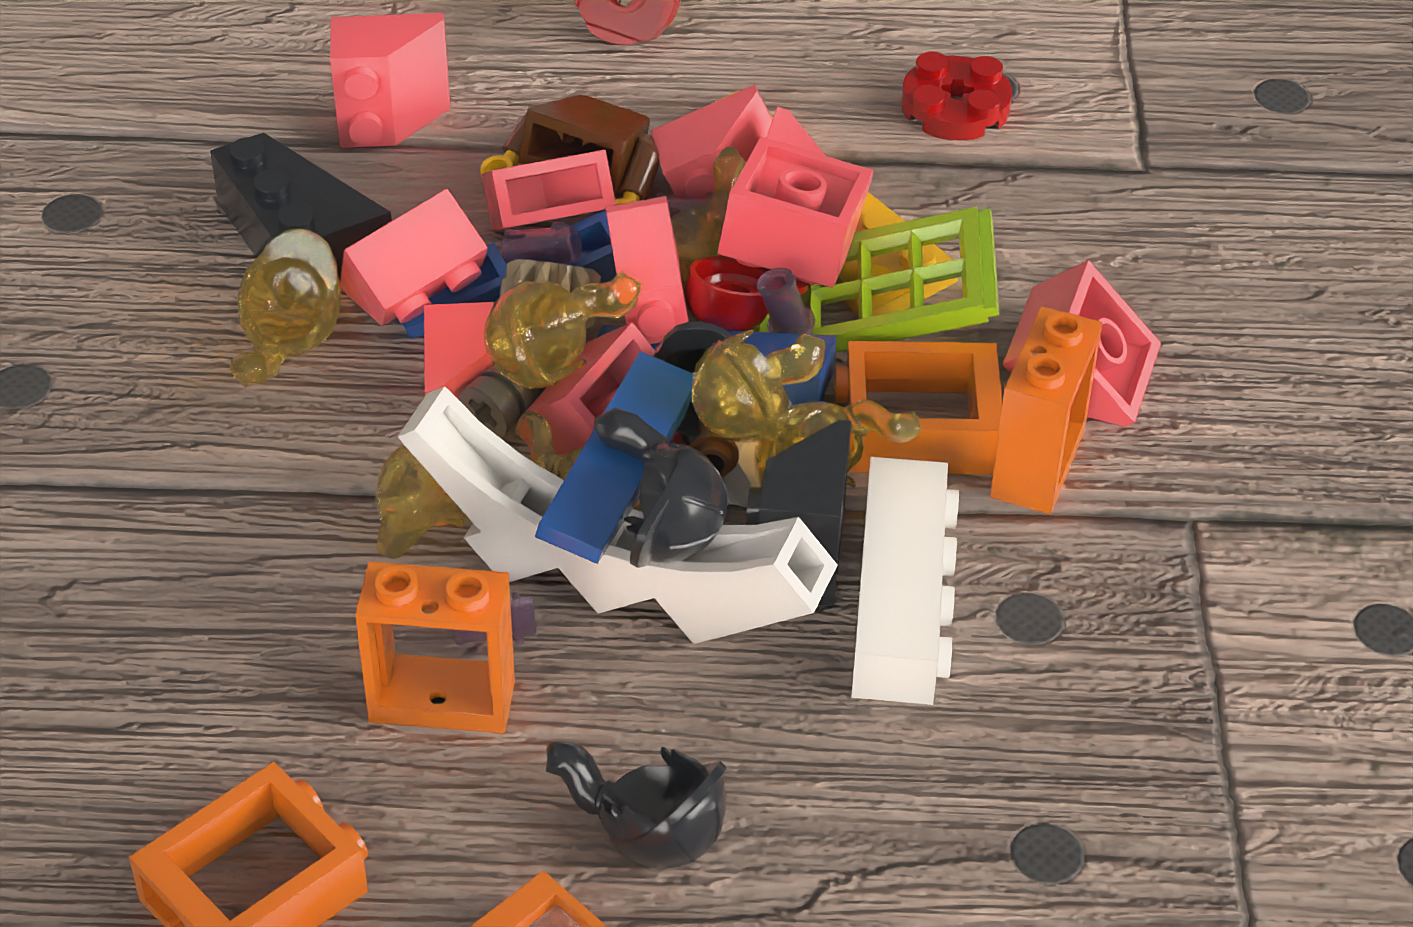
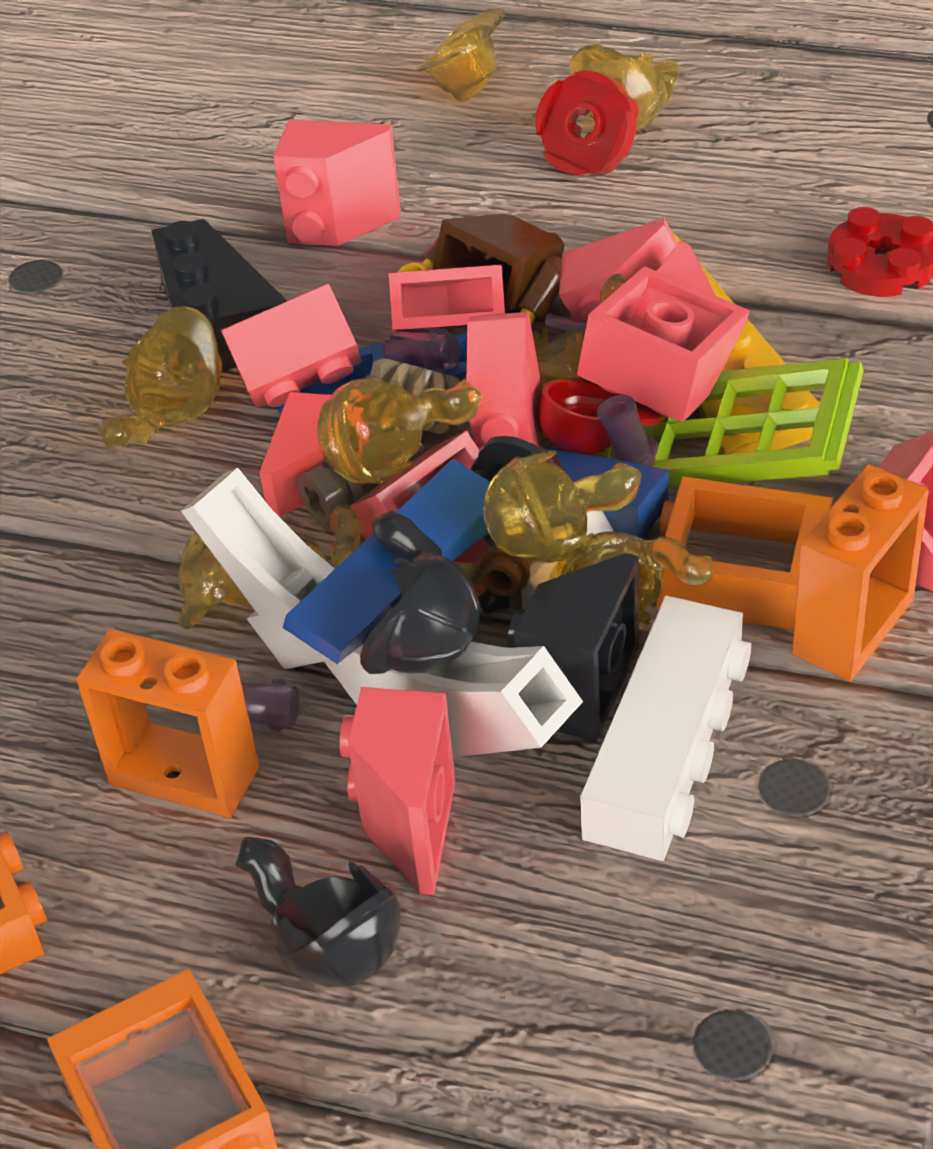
camera: 20 degrees right, 0 degrees up
(679, 664) = (402, 776): none -> coral slope

